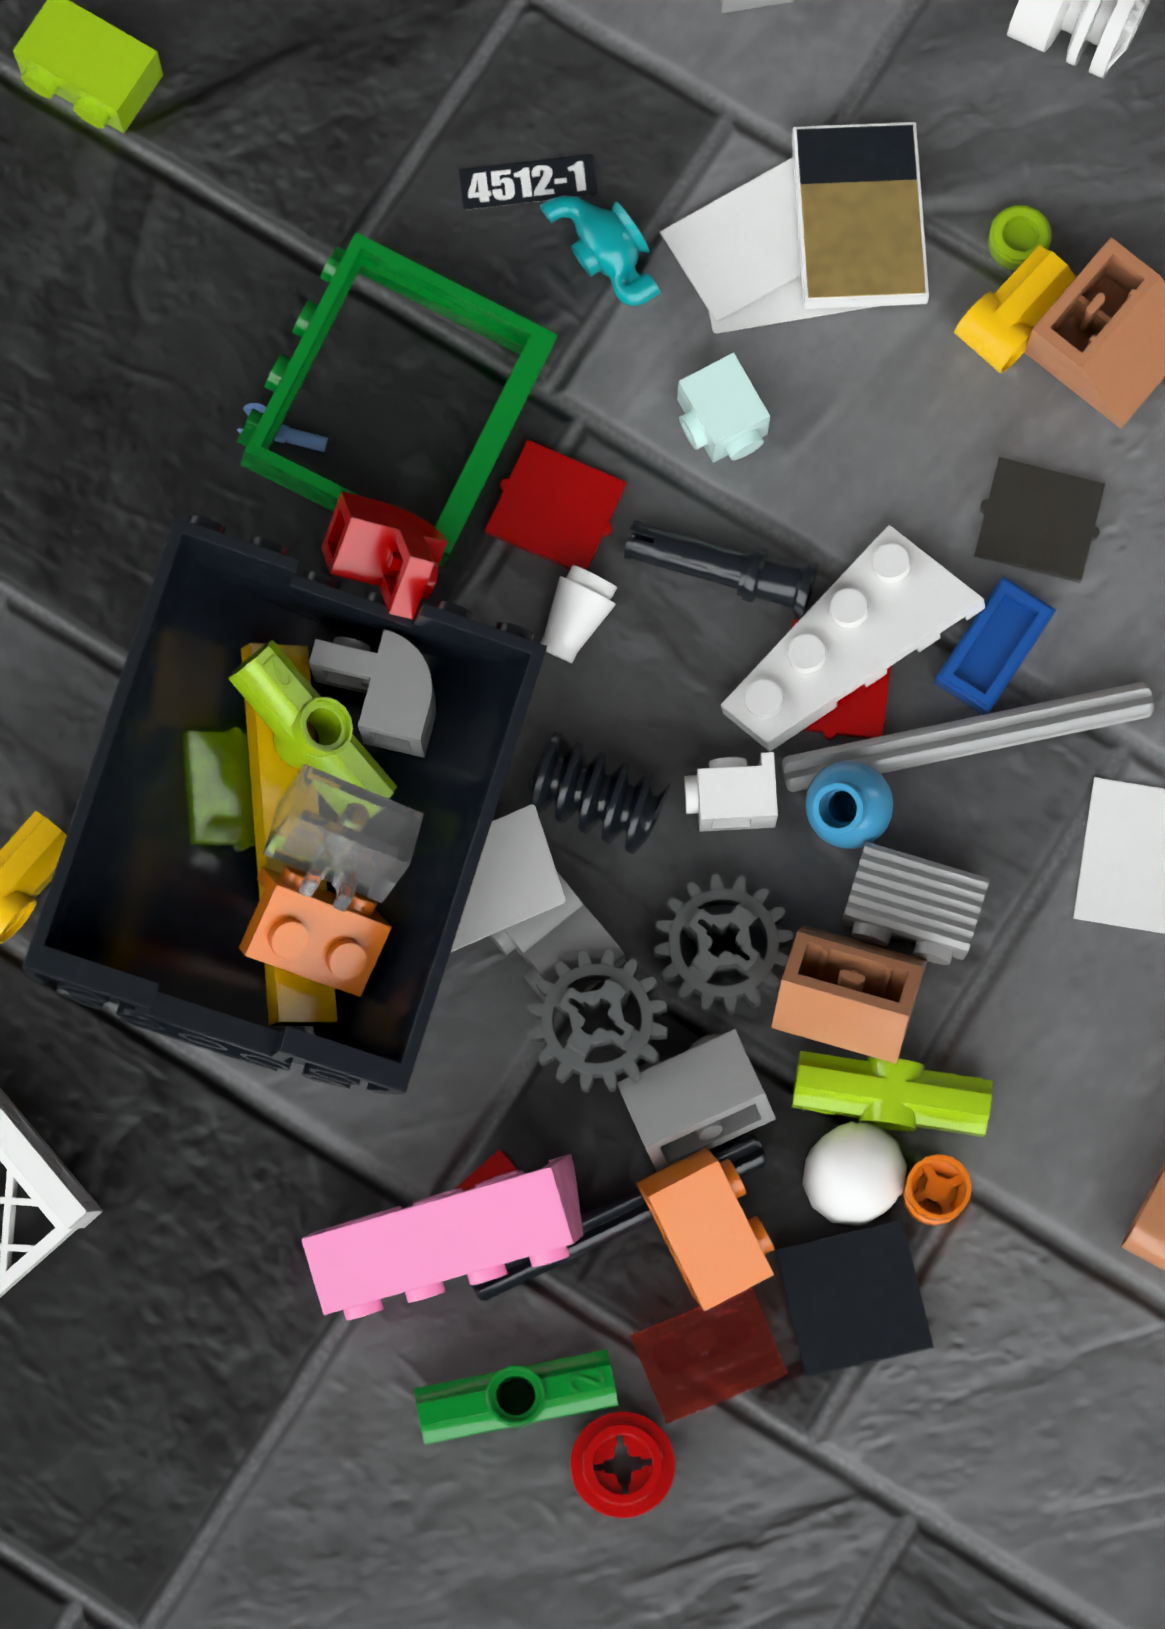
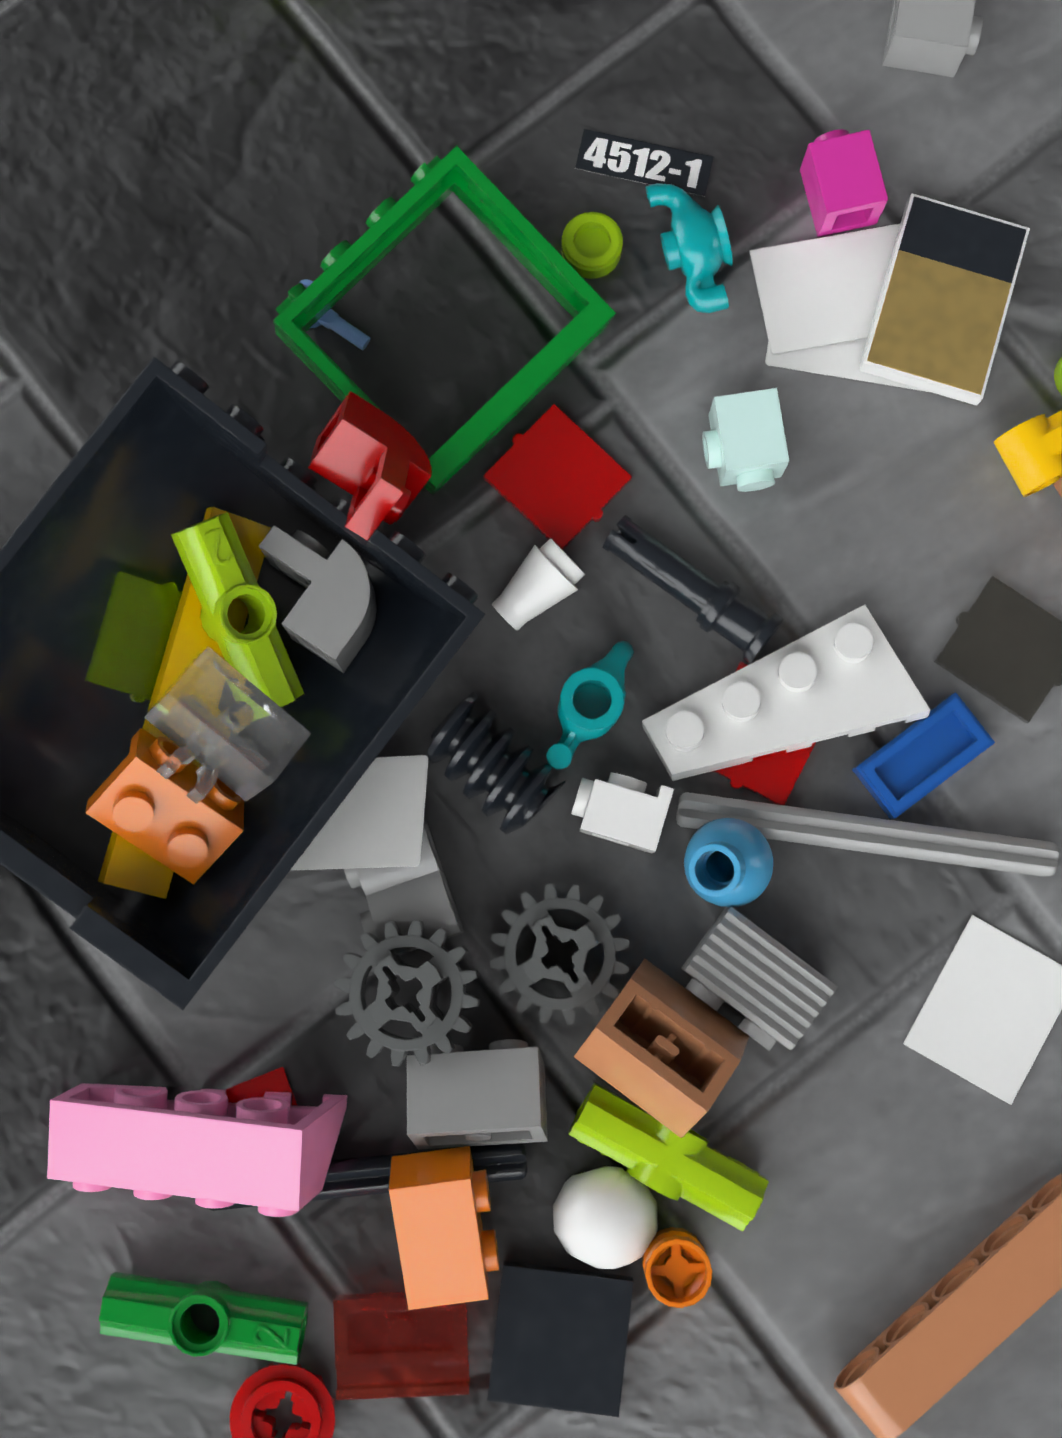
camera: 25 degrees right, 5 degrees up
(508, 276) = (592, 244): none -> lime tile
(667, 705) = (590, 703): none -> teal piece
(724, 139) = (843, 182): none -> dark pink brick

